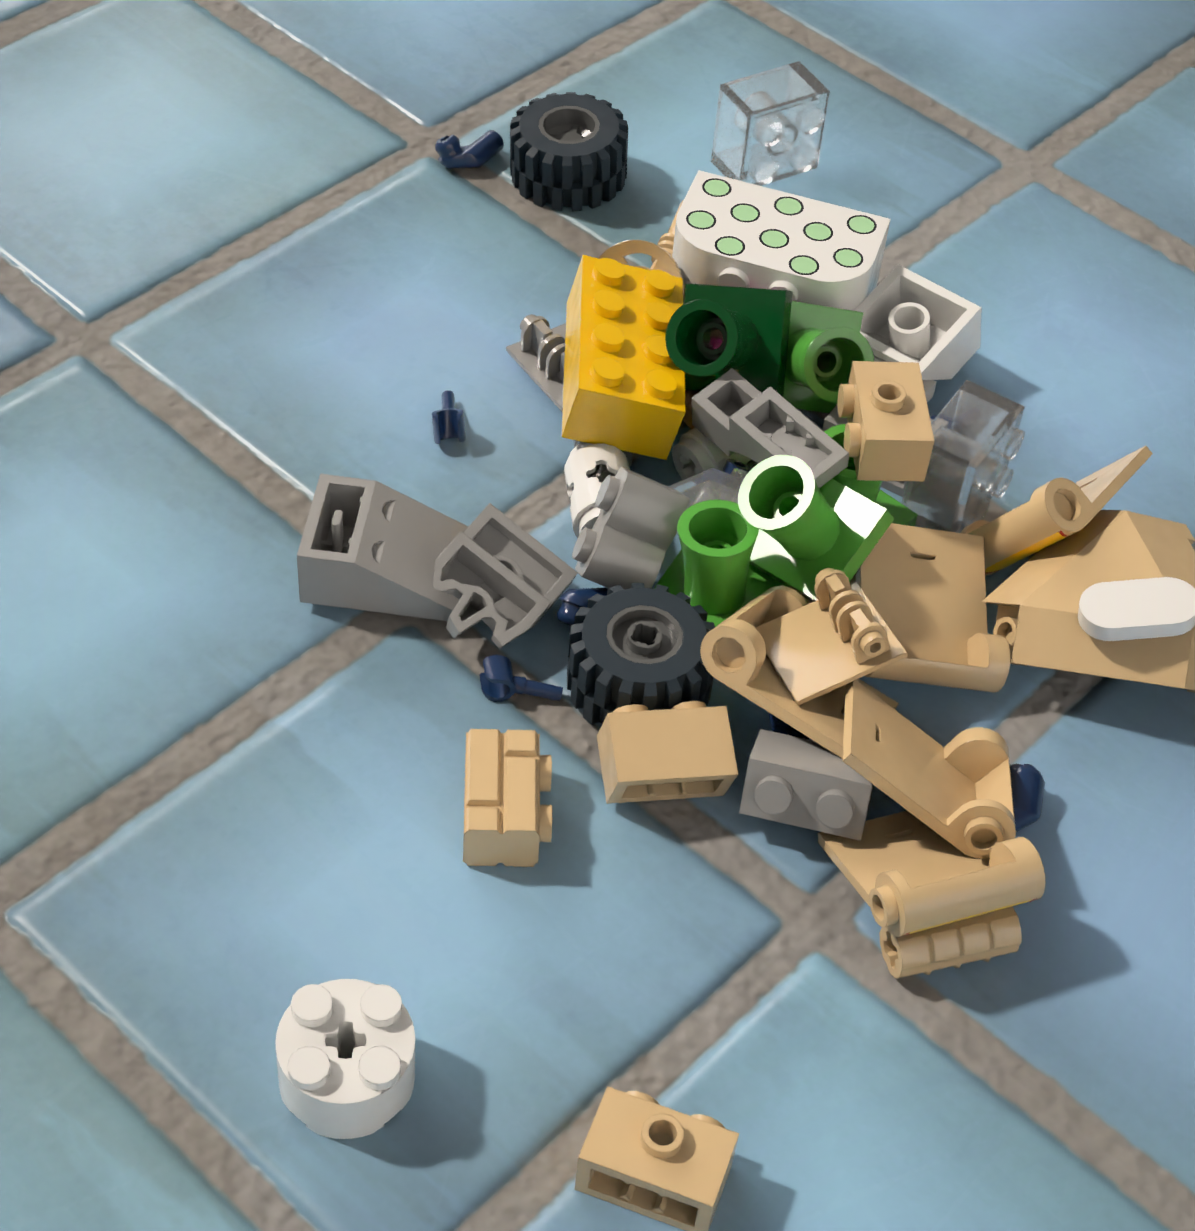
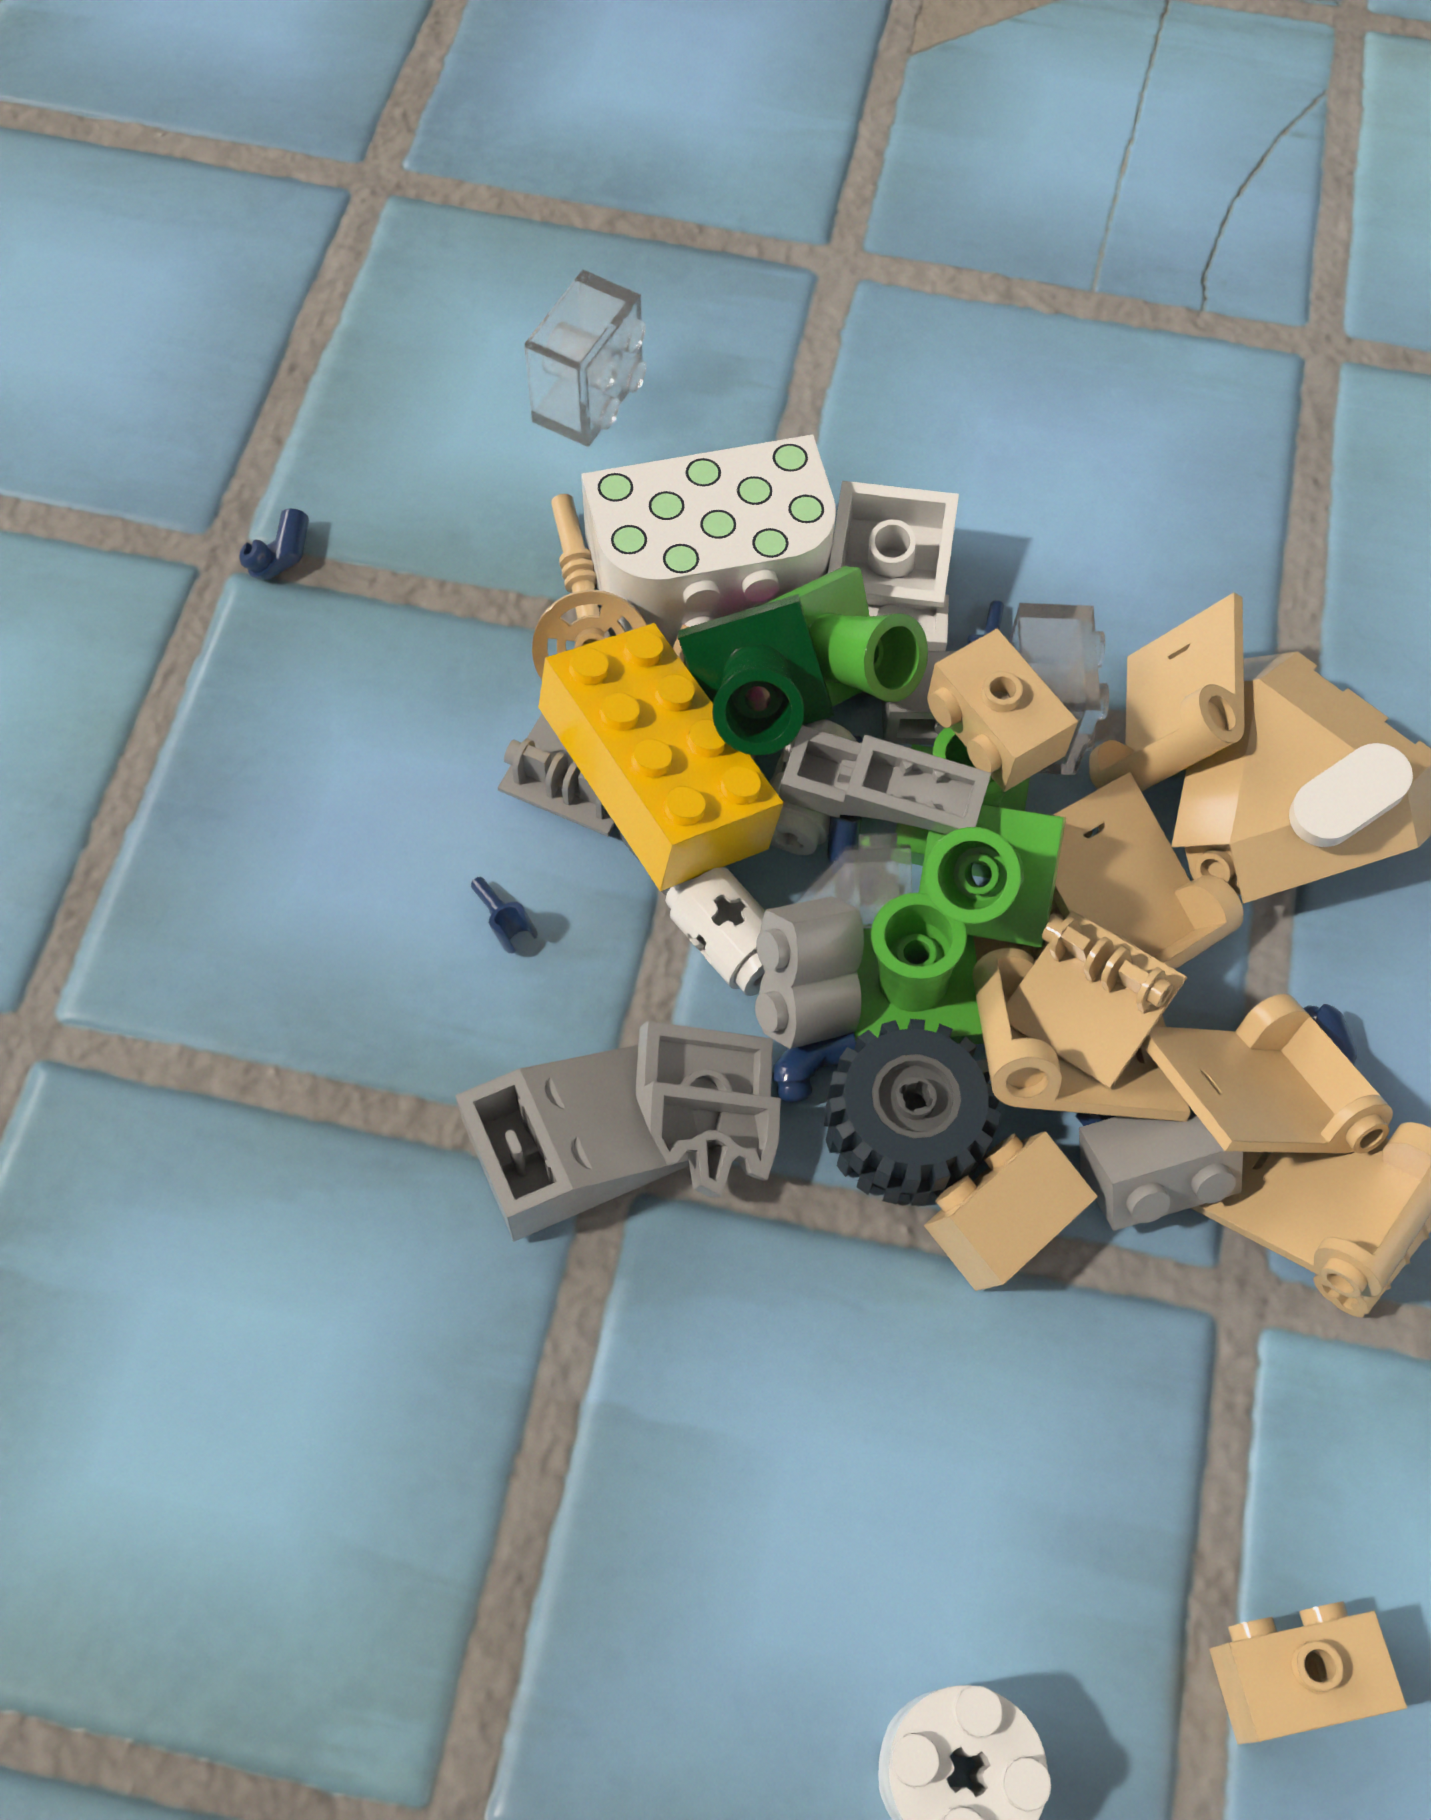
camera: 30 degrees left, 15 degrees up
(500, 683) = (780, 1214): dark blue hand -> none
(503, 798) = (889, 1357): tan brick -> none
(568, 151) = (393, 496): black wheel -> none

